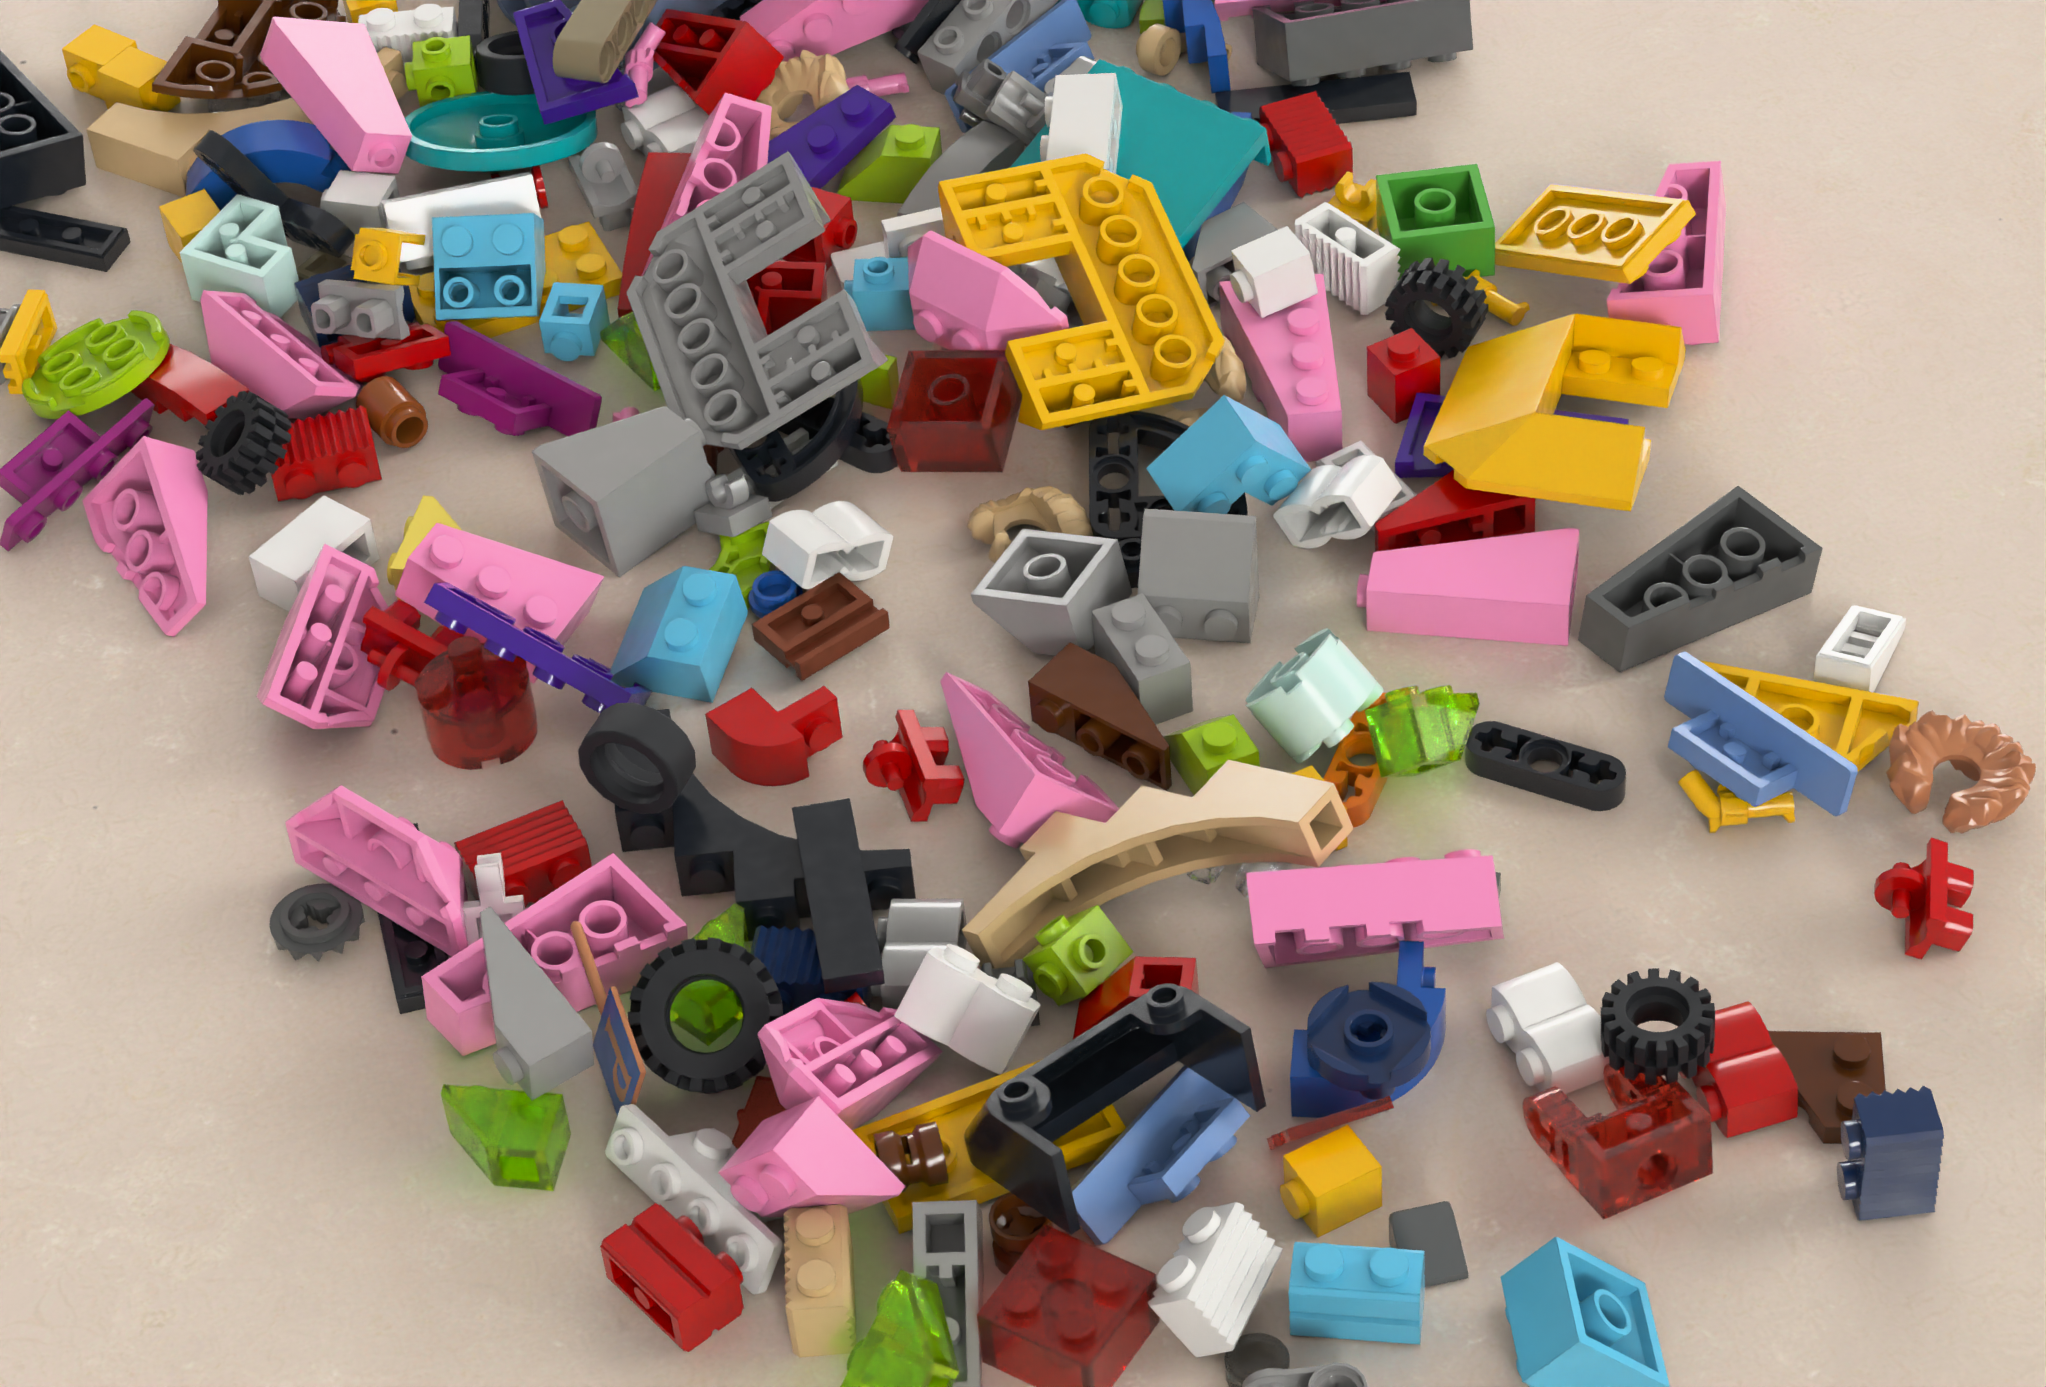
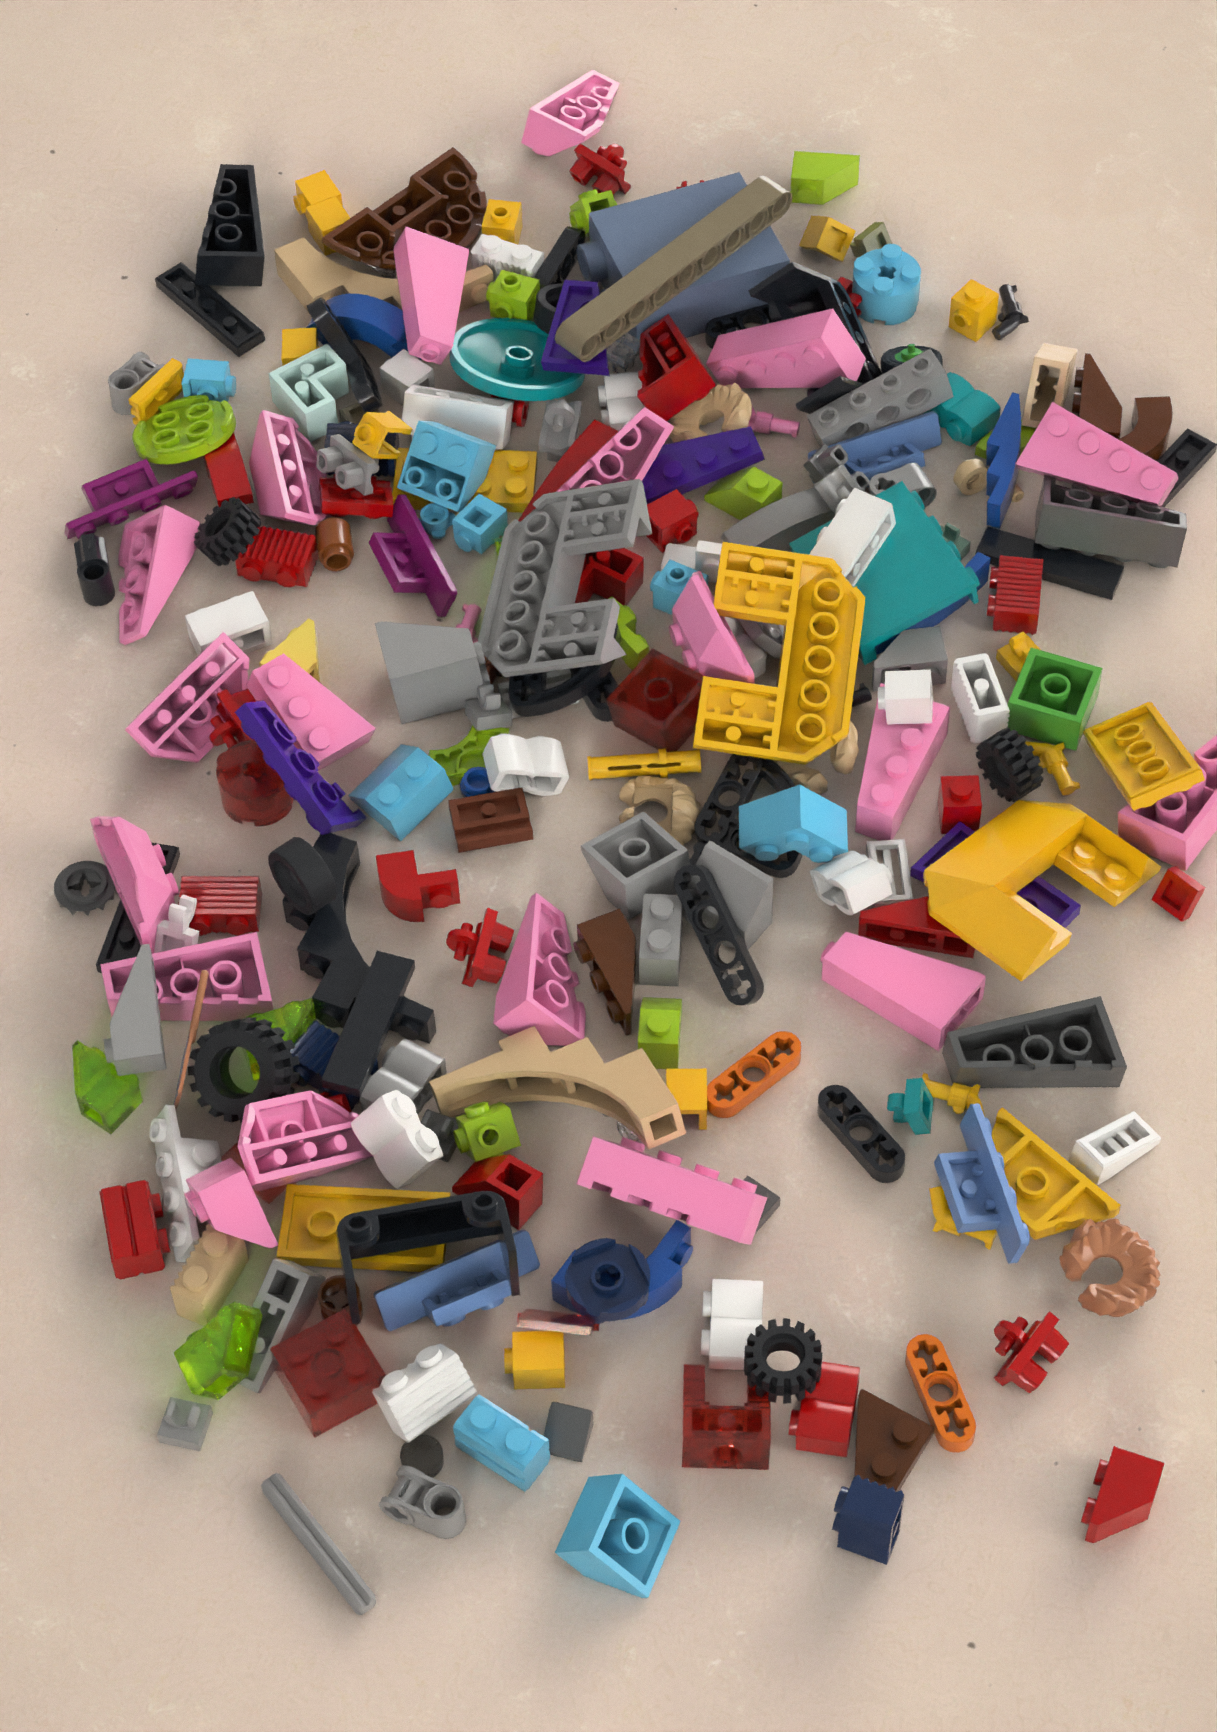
camera: 25 degrees right, 10 degrees up
(76, 563) = (94, 570): none -> black piece
(91, 297) = (208, 379): none -> medium azure brick
(511, 334) = (436, 520): none -> medium azure plate
(640, 62) = (628, 348): bright pink piece -> none
(924, 1153) = (299, 1224): reddish brown wheel -> none
(1030, 466) = (644, 764): none -> yellow pin
(1214, 622) = (713, 938): none -> black beam
(1313, 696) = (738, 1019): light aqua brick -> none
(1420, 729) = (793, 1077): clear neon green slope -> none
(1588, 708) = (913, 1106): none -> teal tile
(1631, 677) = (957, 1095): none -> yellow piece
(1732, 363) = (1178, 893): none -> red tile
(1846, 972) = (938, 1411): none -> orange beam

